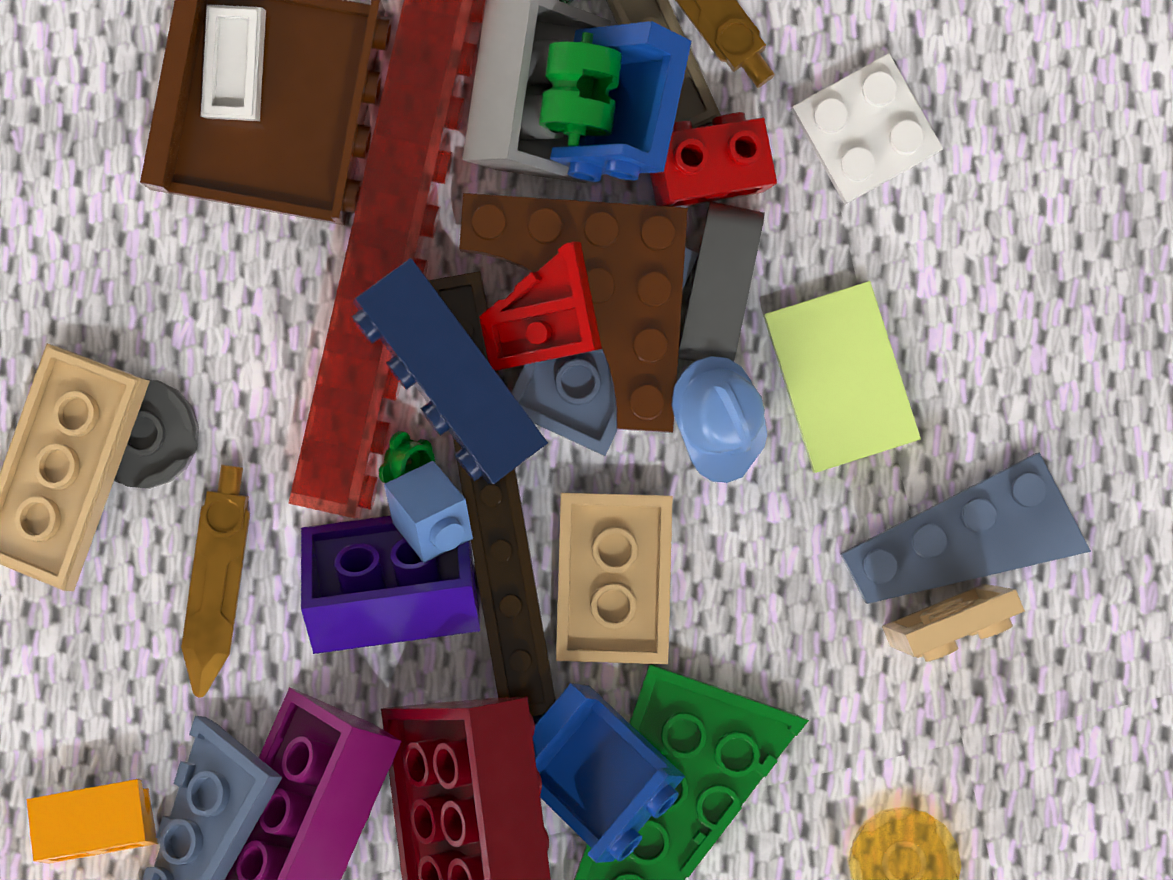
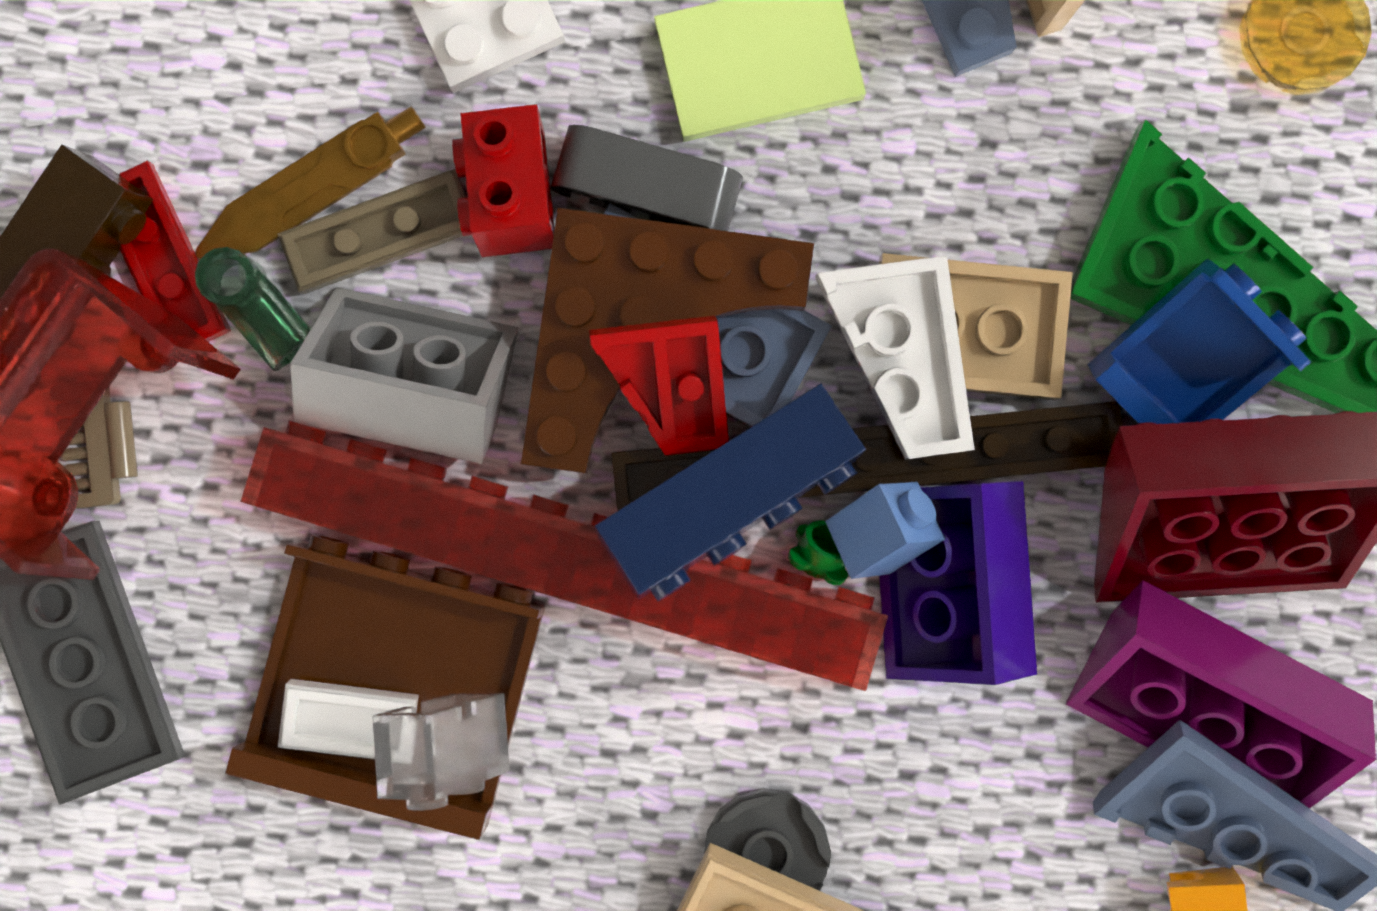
camera: 90 degrees left, 0 degrees up
(215, 145) = (442, 750): none -> clear brick
(215, 580) = (939, 780): pearl gold piece -> none
(580, 89) = (401, 315): green wheel -> none
(586, 520) = (908, 349): none -> white wing
(645, 104) = (428, 265): blue panel -> none
(719, 418) = (797, 191): medium blue piece -> none

